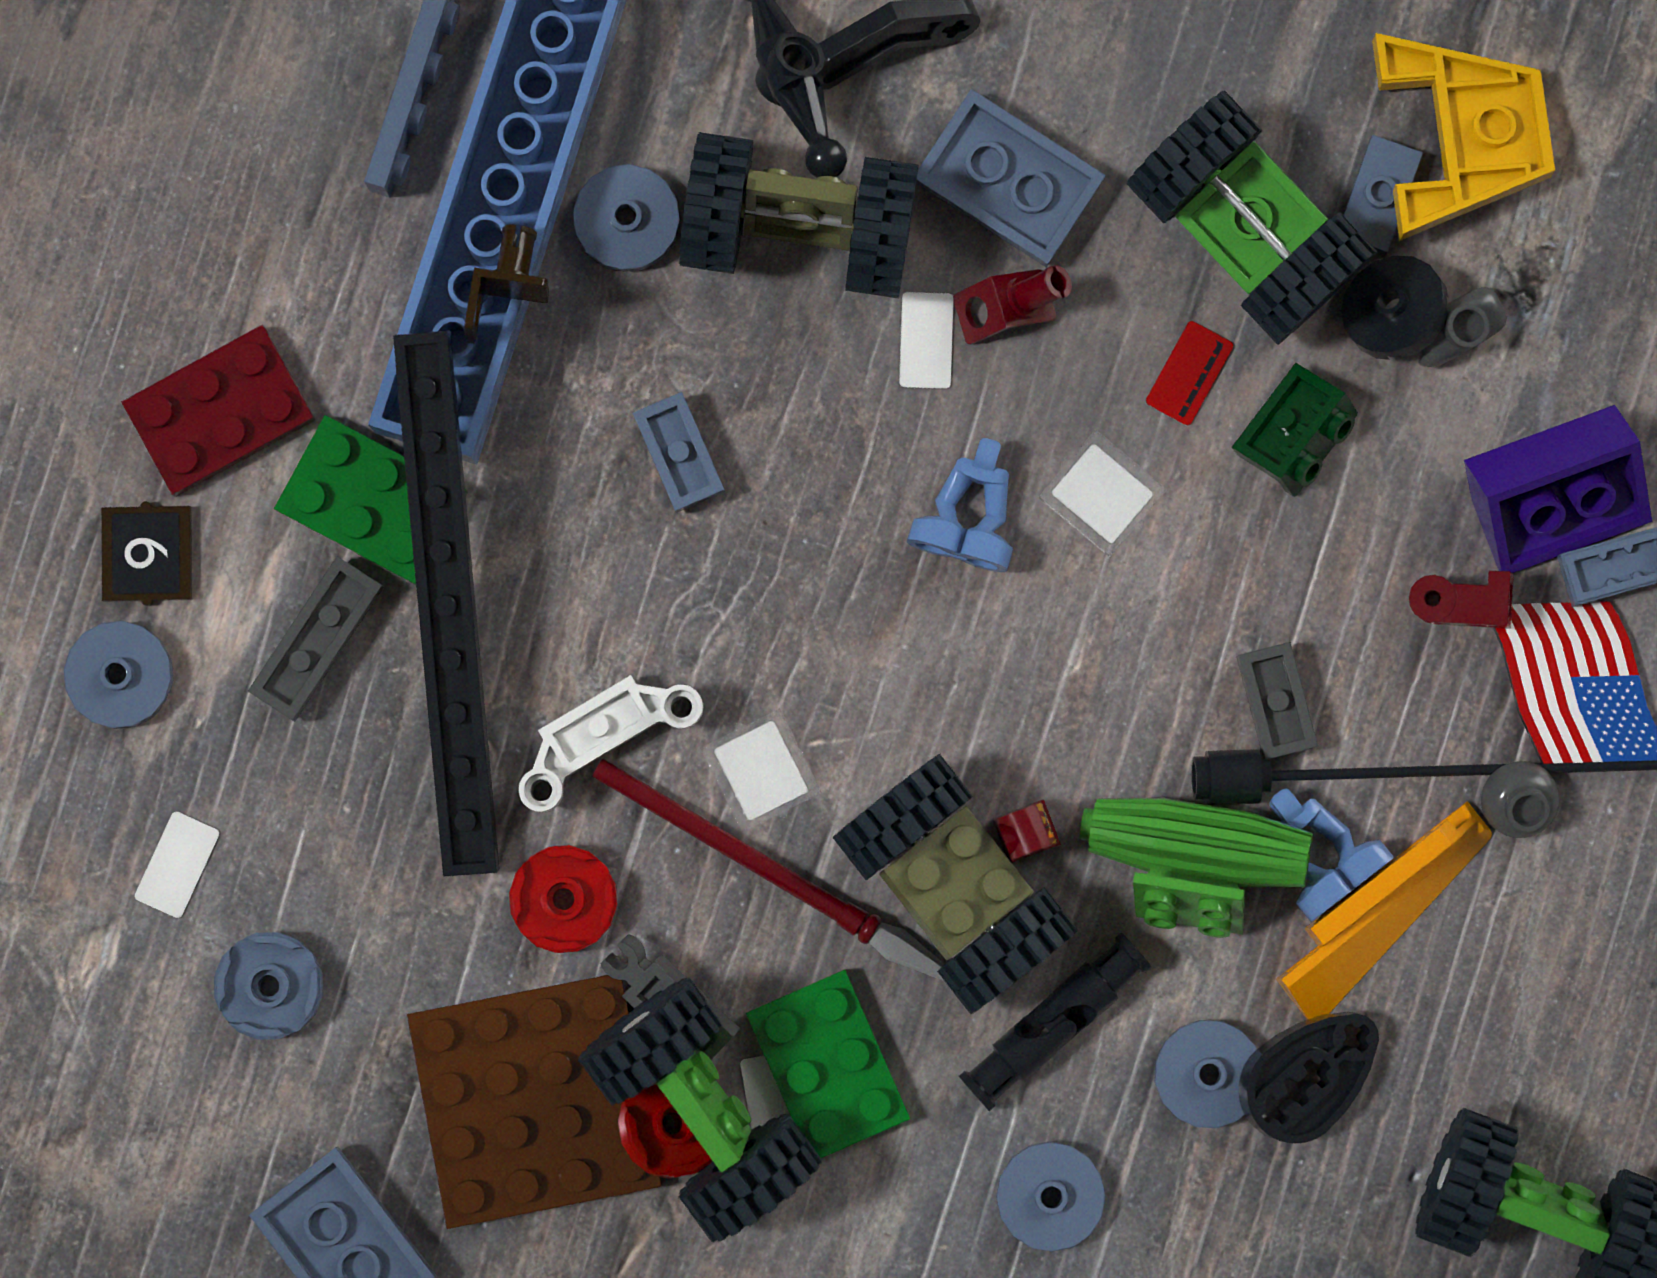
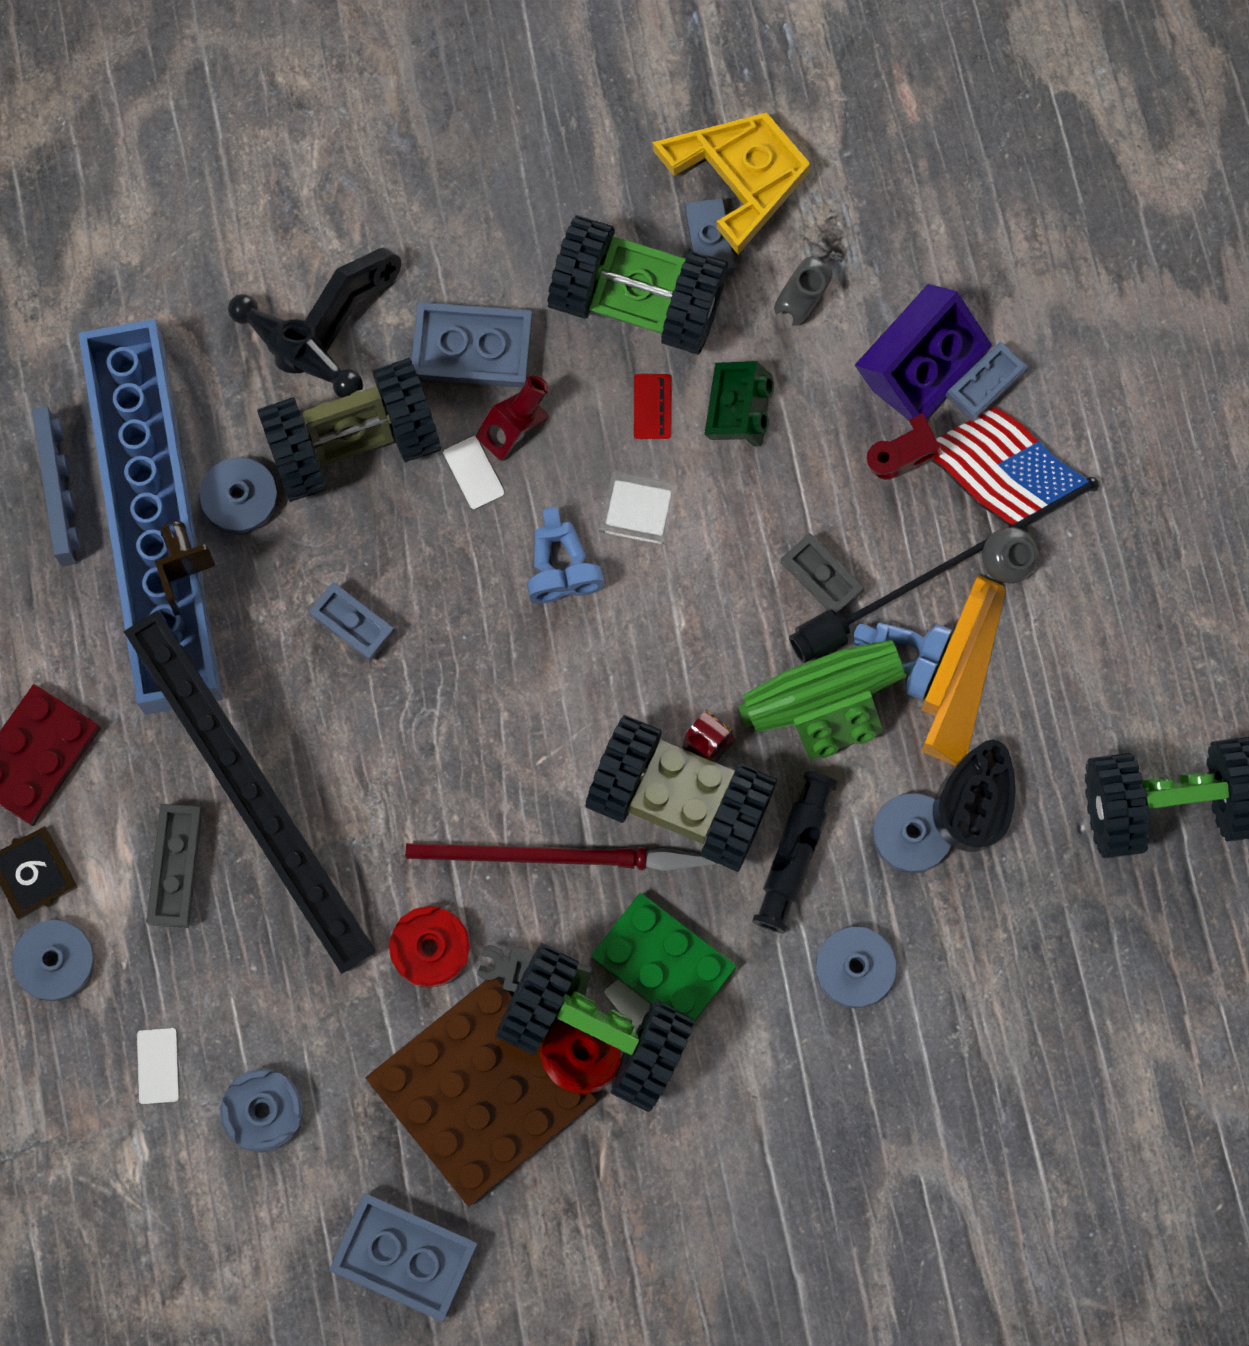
camera: 30 degrees left, 10 degrees down
(353, 496) = (154, 762): green plate -> none
(598, 729) = (395, 821): white plate -> none
(761, 770) = (514, 796): clear piece -> none
(1406, 326) = (770, 304): black plate -> none

